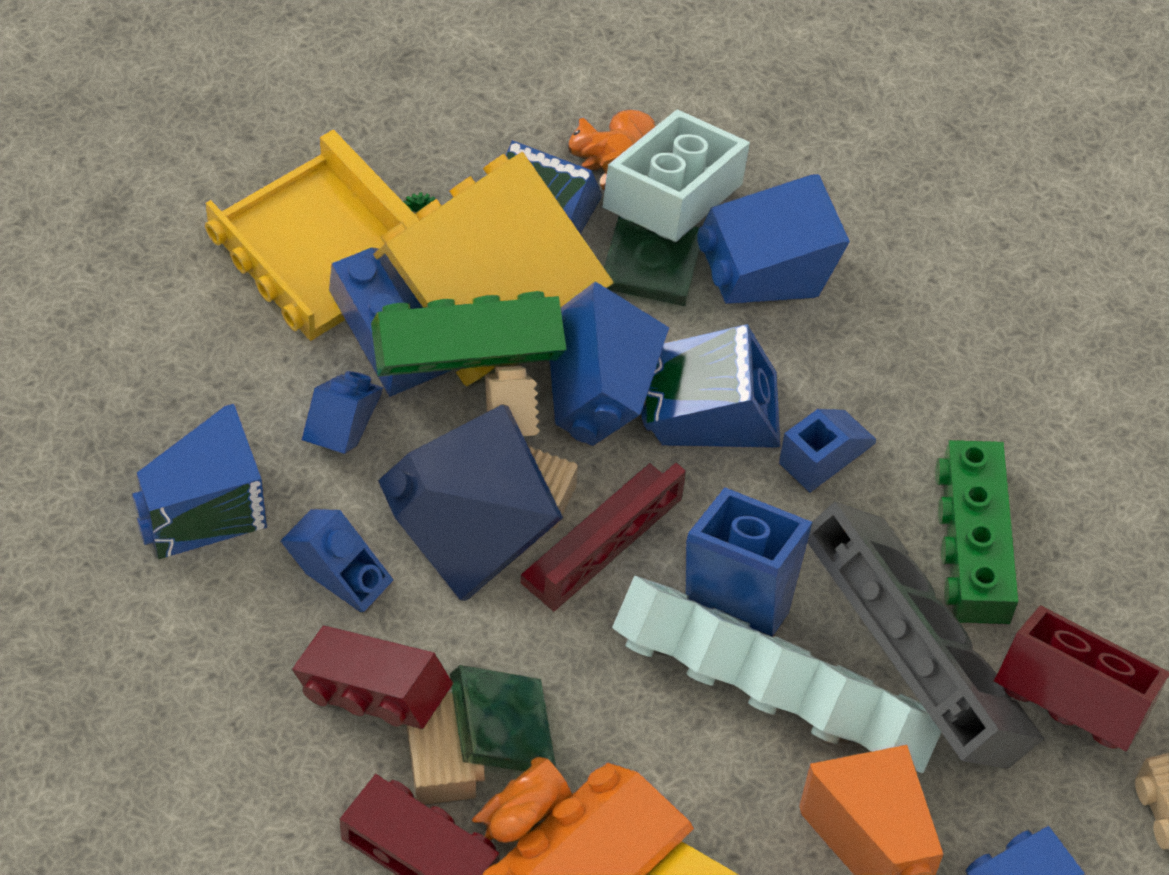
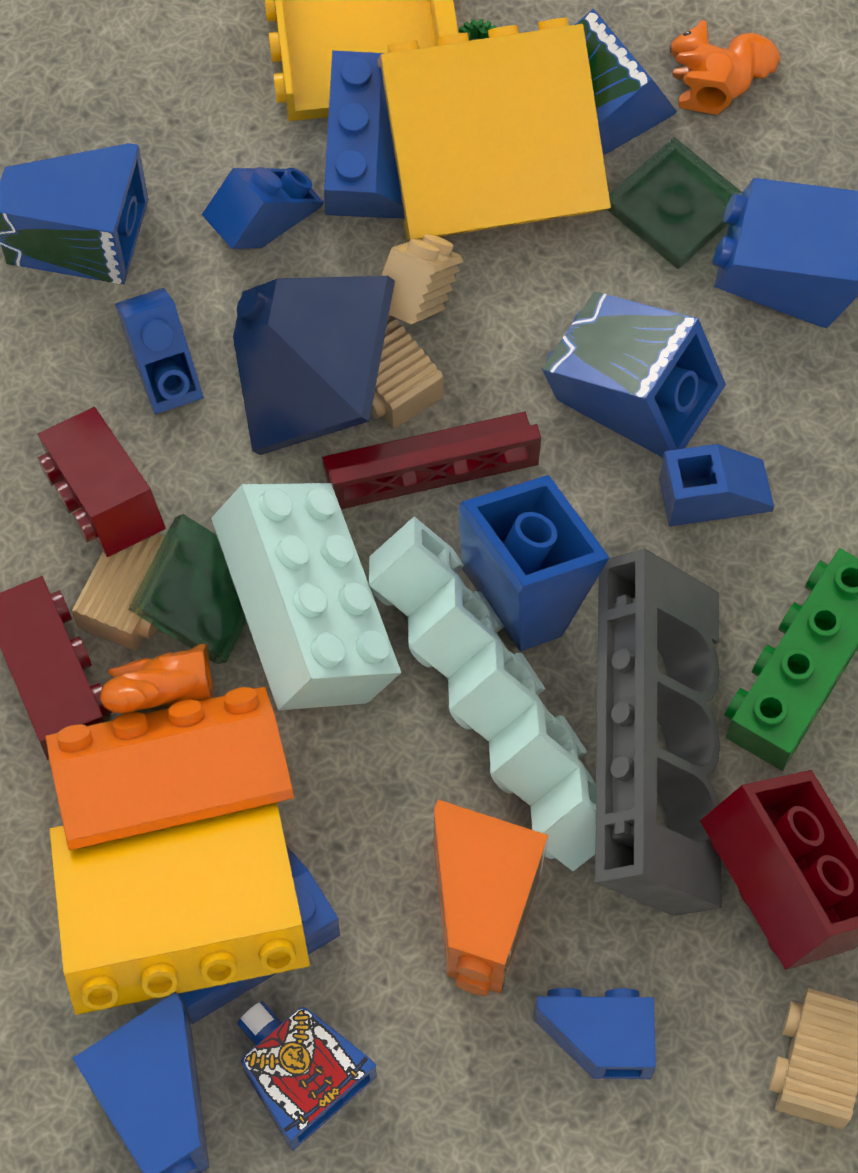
camera: 35 degrees right, 10 degrees up
(467, 334) = (406, 187): green brick -> none
(591, 677) = (305, 595): none -> light aqua brick
(606, 364) = (533, 284): blue slope -> none
(675, 175) = (749, 125): light aqua brick -> none

